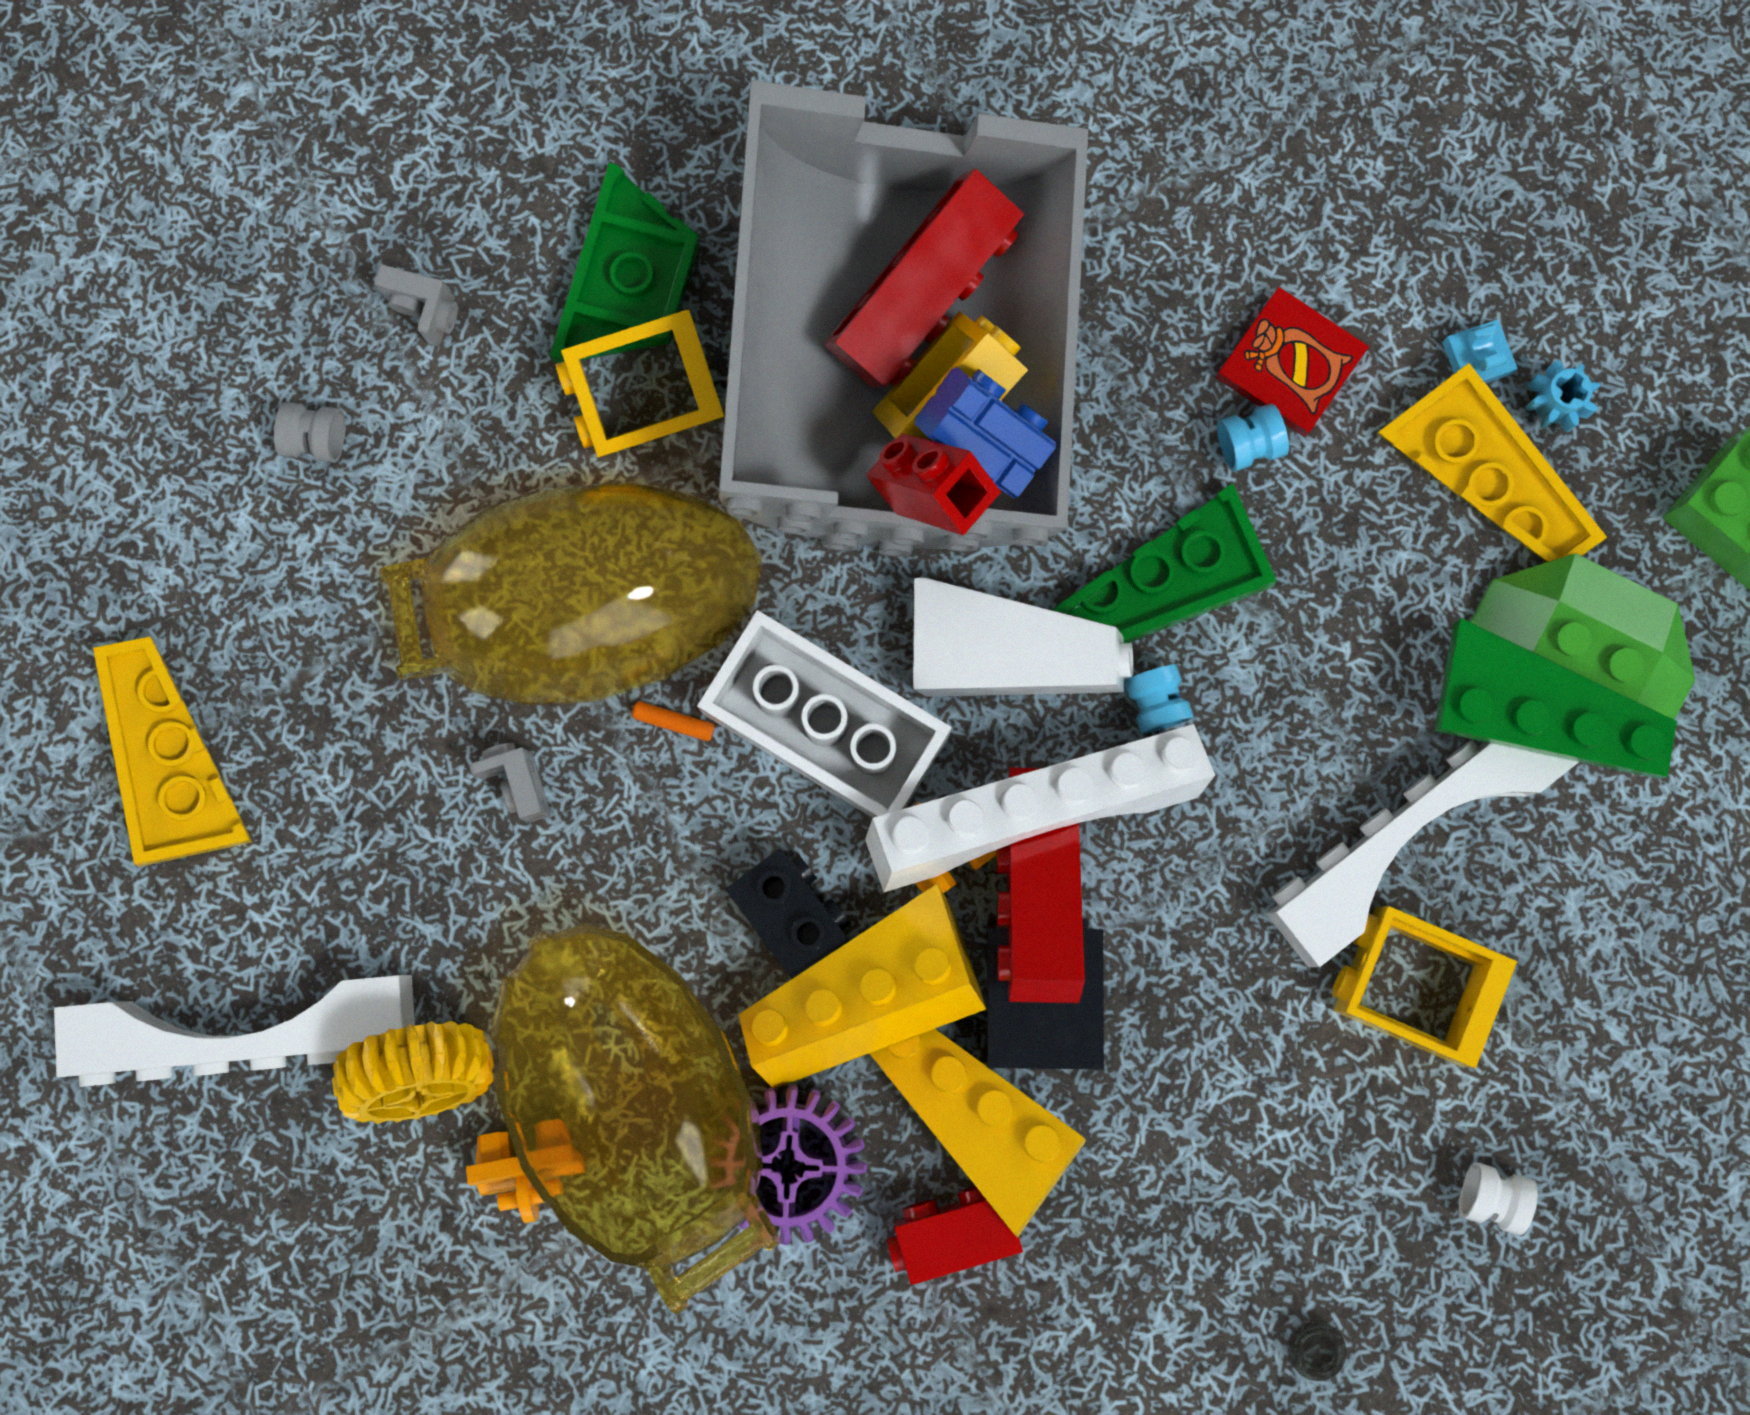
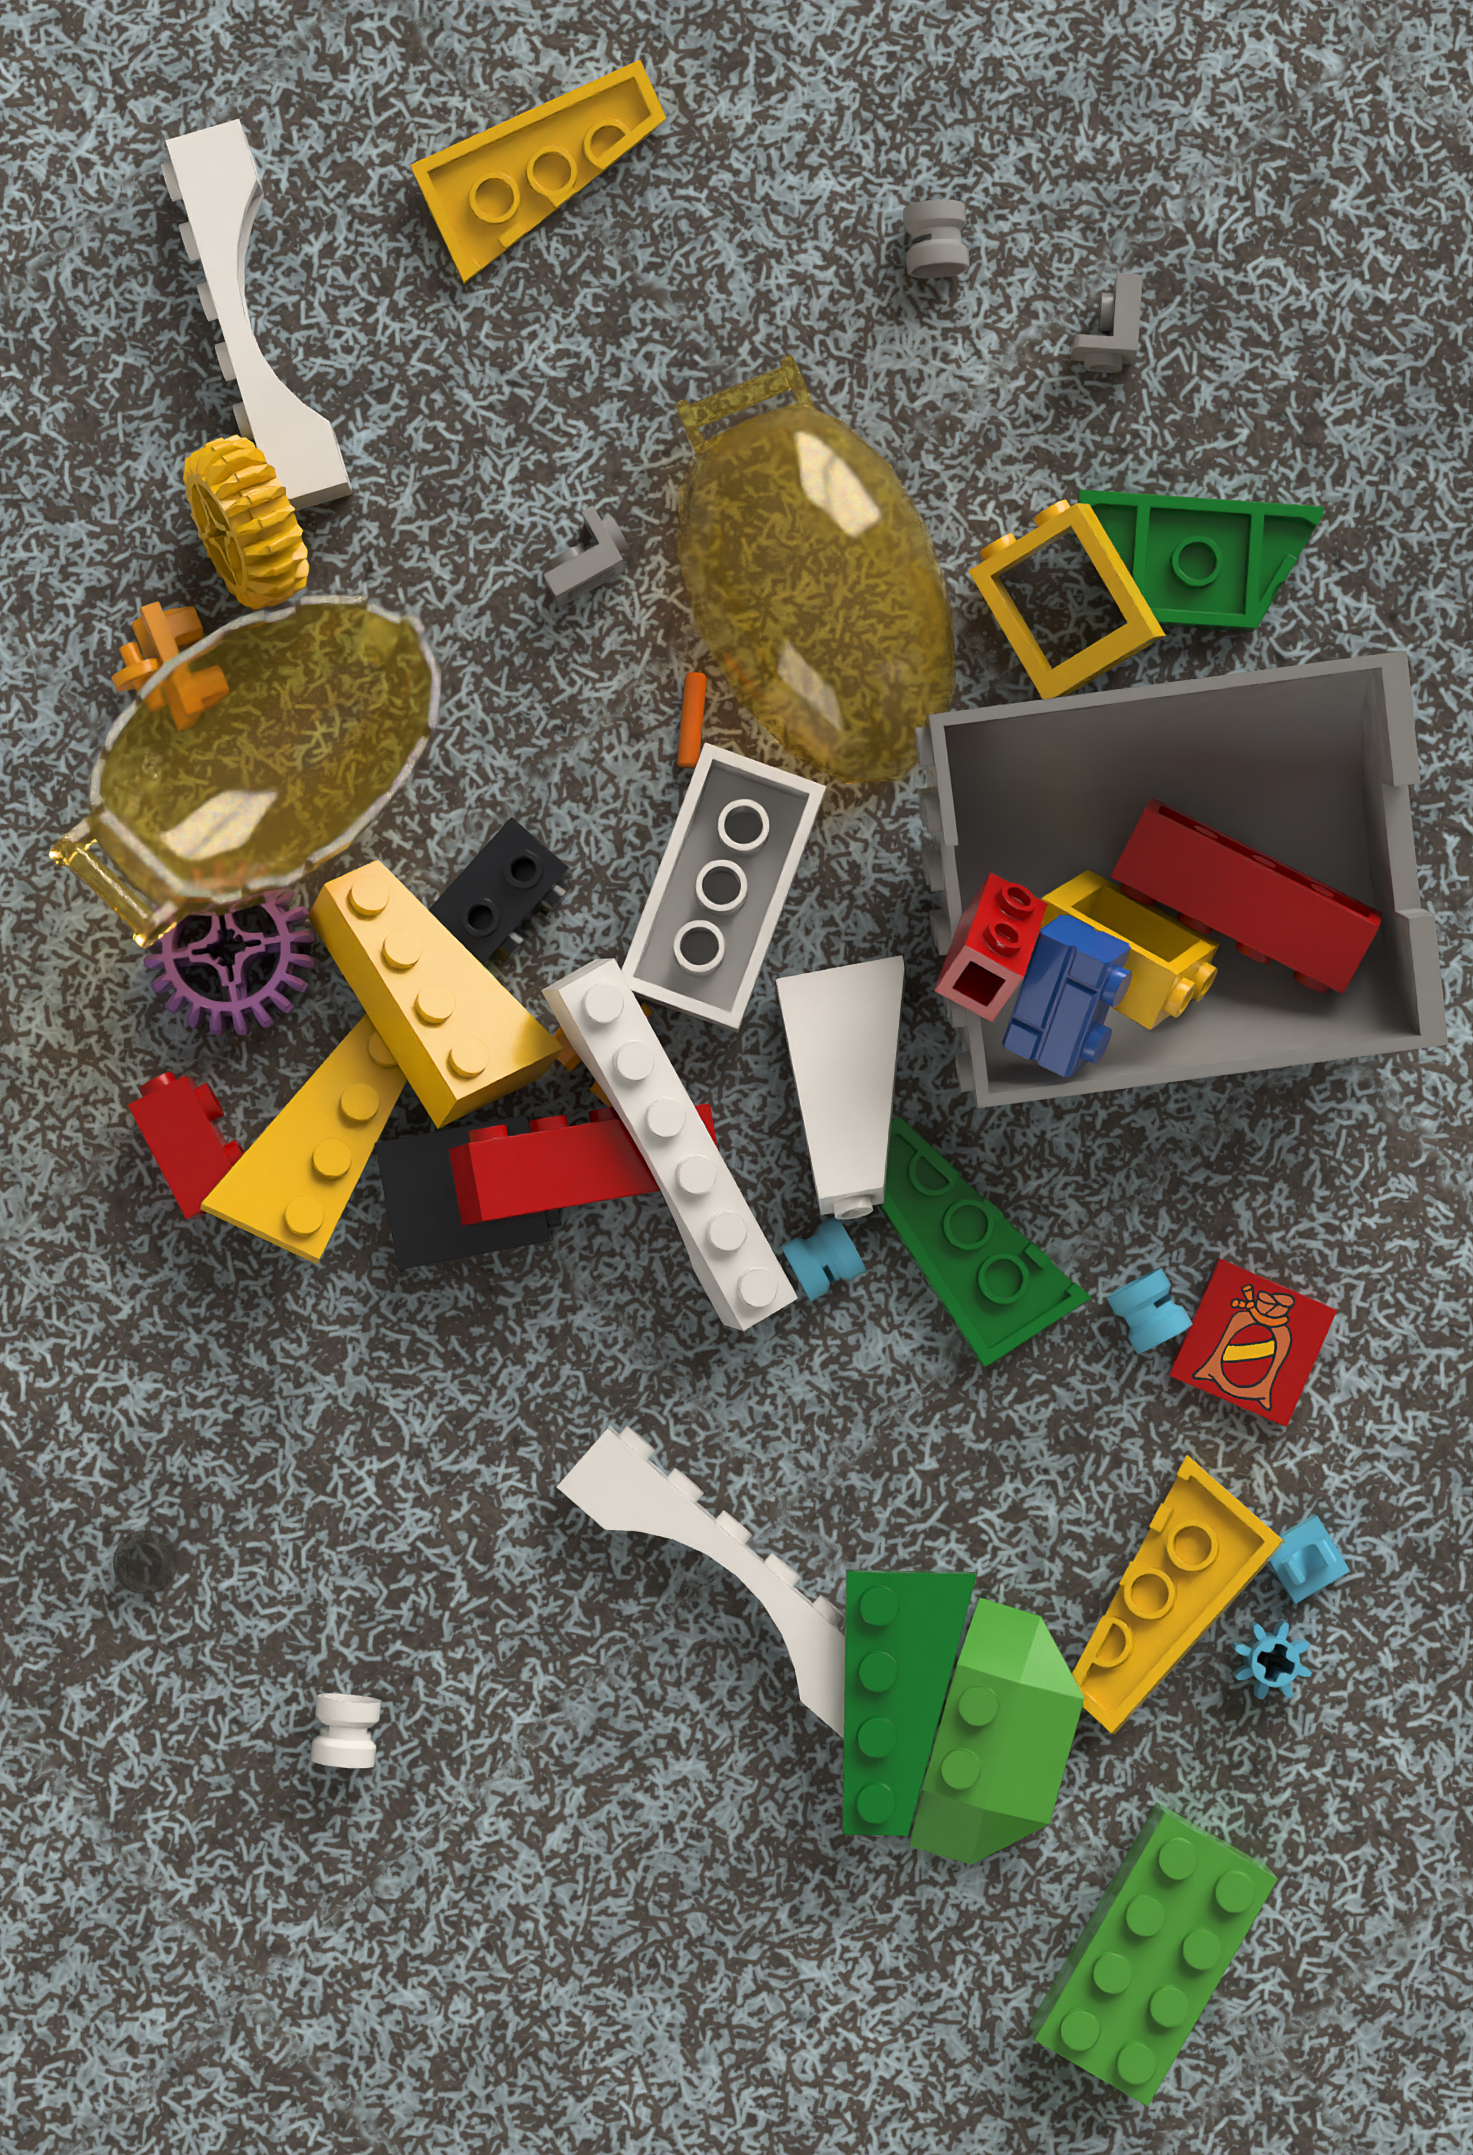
camera: 75 degrees right, 5 degrees up
(1478, 1002) = (545, 1672): yellow window -> none

